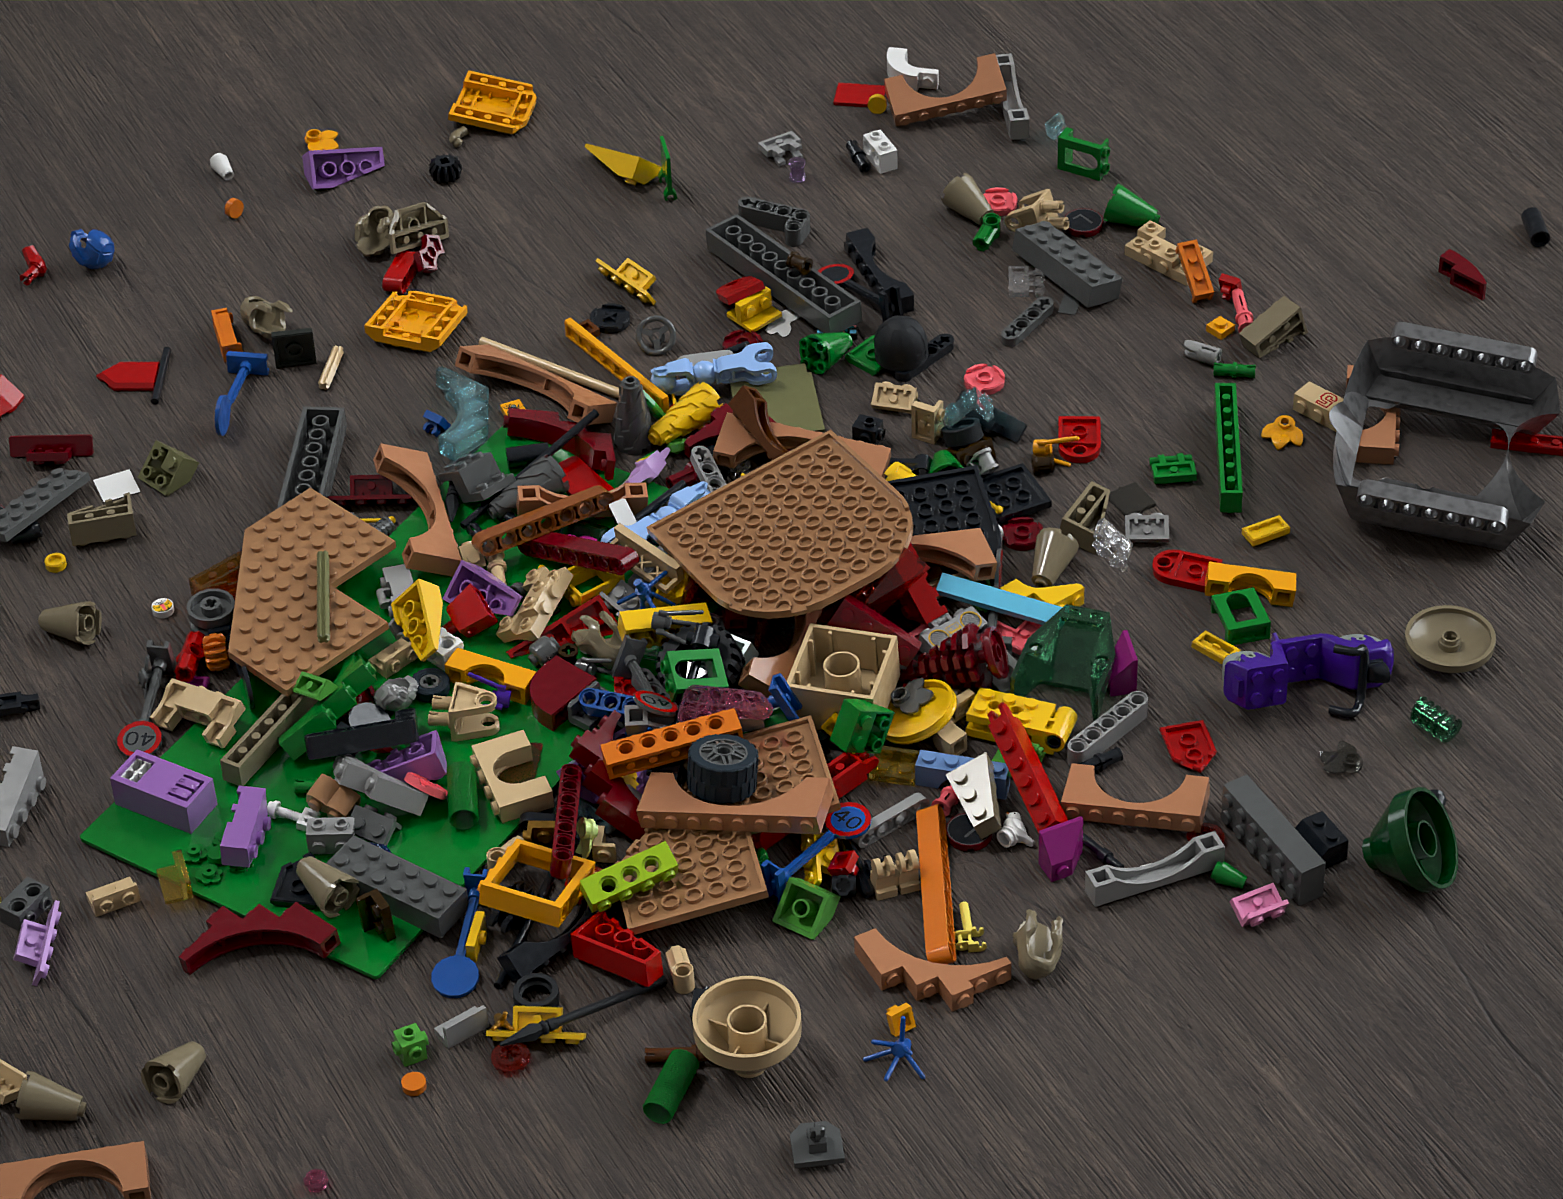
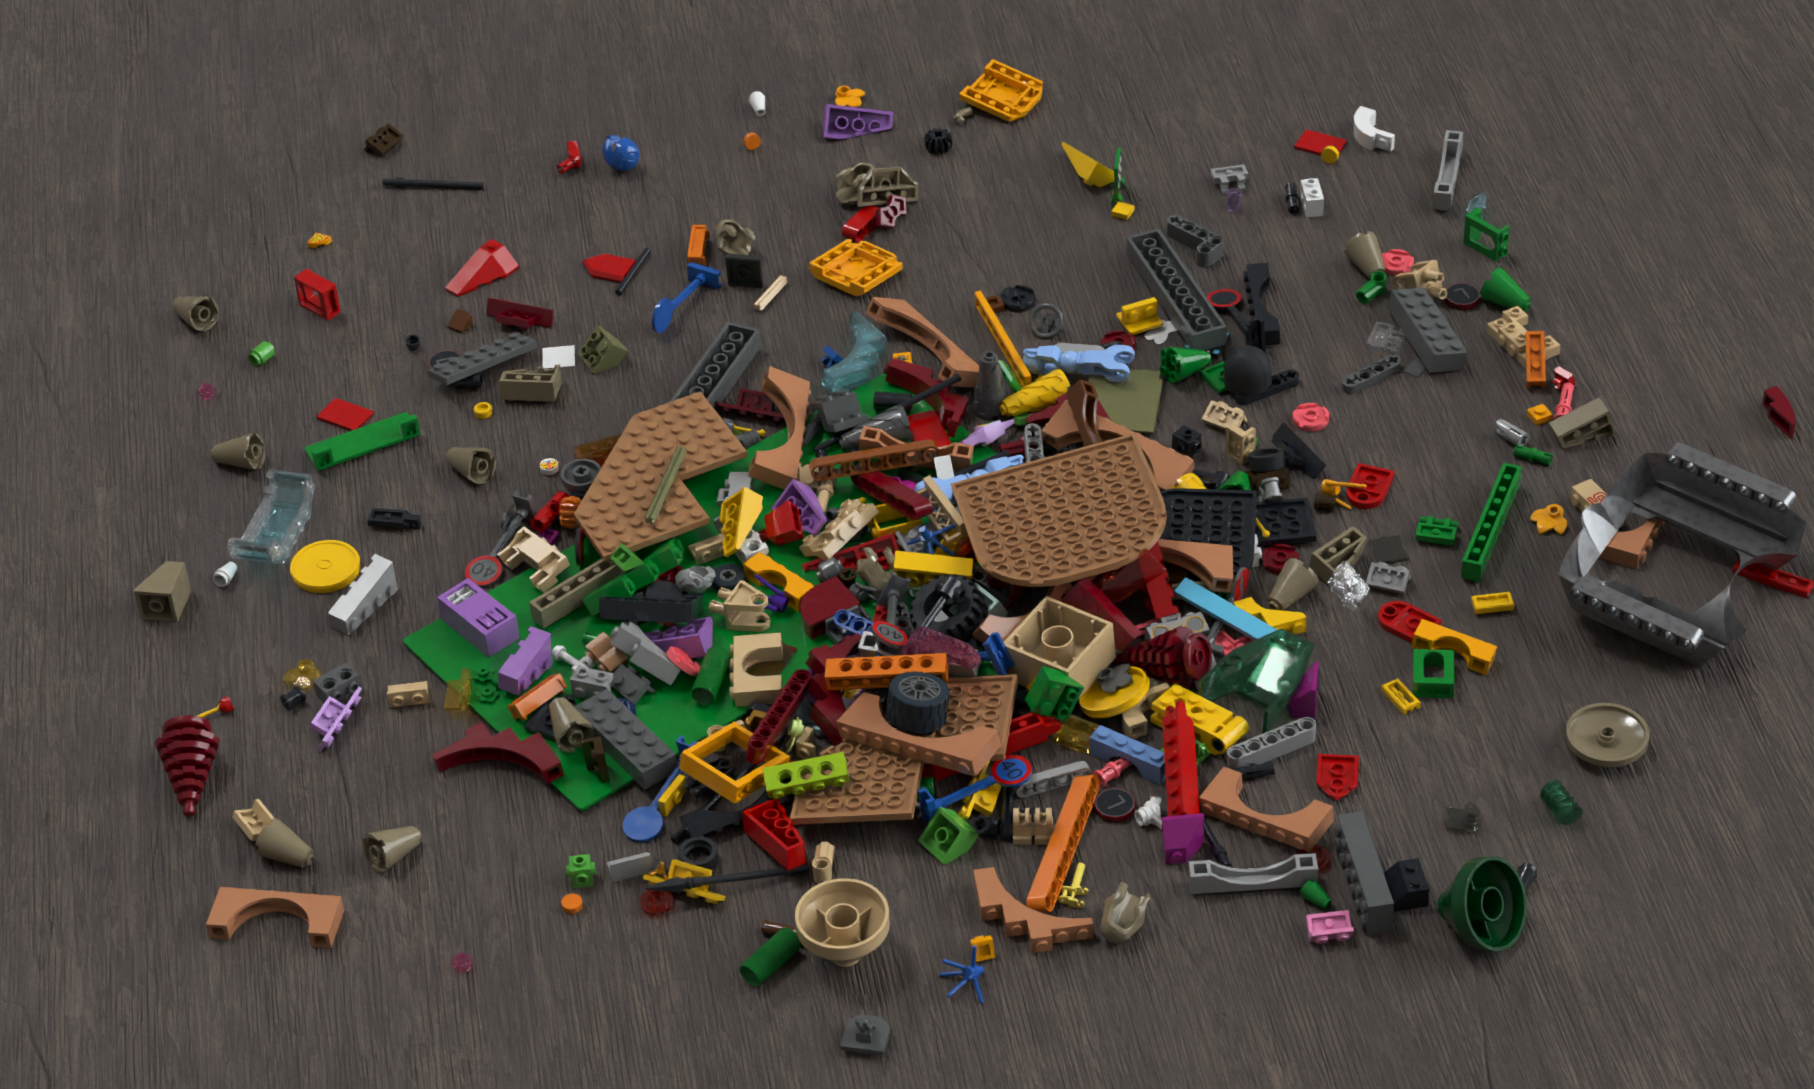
camera: 20 degrees right, 0 degrees up
(272, 863) = (537, 696): none -> orange container
(556, 369) = (942, 325): tan piece -> none
(632, 276) = (1052, 267): yellow bracket -> none
(662, 620) = (925, 566): dark grey plant -> none
(676, 685) = (910, 622): green panel -> none
(681, 204) = (1123, 210): none -> yellow tile
(739, 289) = (1132, 295): red tile -> none
(800, 263) = (1185, 279): dark brown bush -> none
(844, 863) = (993, 807): red tile -> none
(910, 106) = (1424, 160): nougat arch -> none
(969, 400) = (1286, 434): clear light blue bracket -> none
(977, 794) = (1127, 774): wedge -> none
(1349, 661) = (1508, 734): dark purple piece -> none

